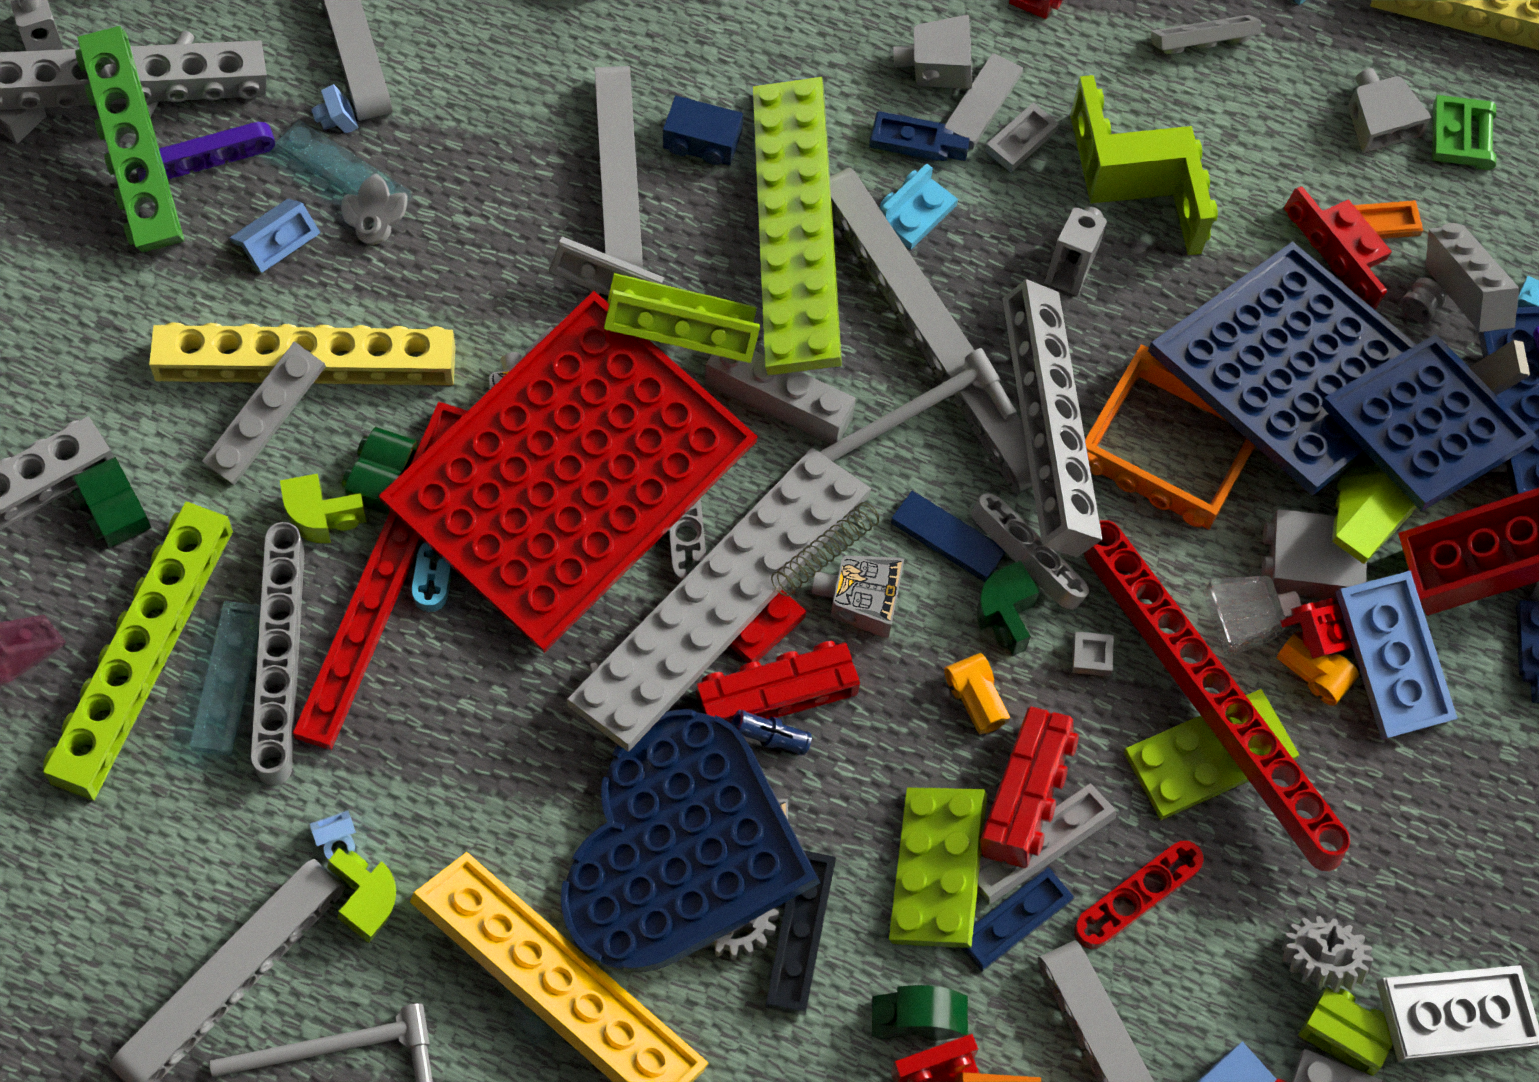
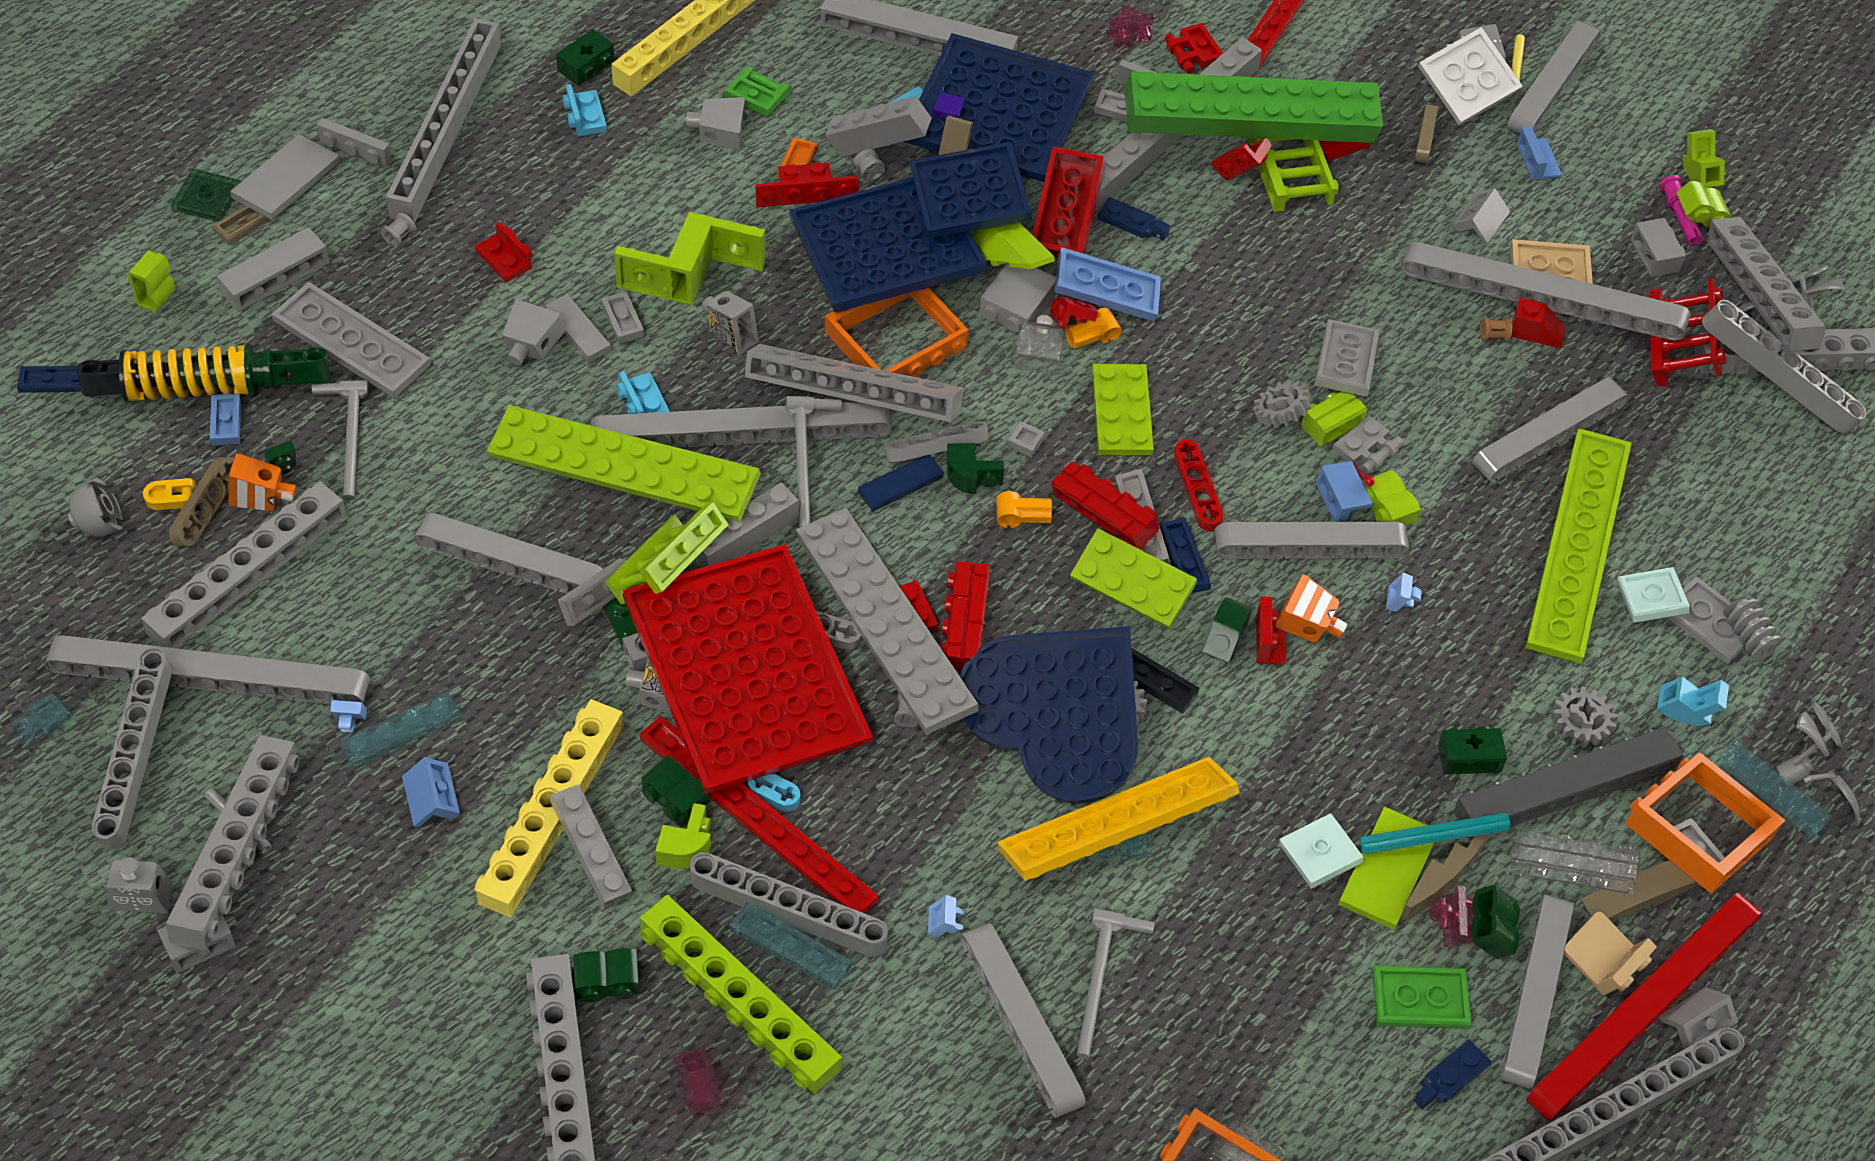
camera: 65 degrees left, 10 degrees down
(95, 52) = (323, 838): bright green brick -> none
(204, 153) = (331, 814): dark purple beam -> none
(372, 206) = (447, 717): light grey plate -> none
(373, 896) = (1006, 907): lime brick -> none
(702, 131) = (507, 493): dark blue brick -> none
(772, 732) = (999, 628): dark blue pin -> none
(789, 579) = (881, 549): olive piece -> none
(863, 591) = (921, 541): light grey torso -> none
(917, 138) = (586, 375): dark blue hinge -> none
(1206, 34) = (602, 185): light grey plate -> none
(1218, 707) = (1096, 382): red beam -> none

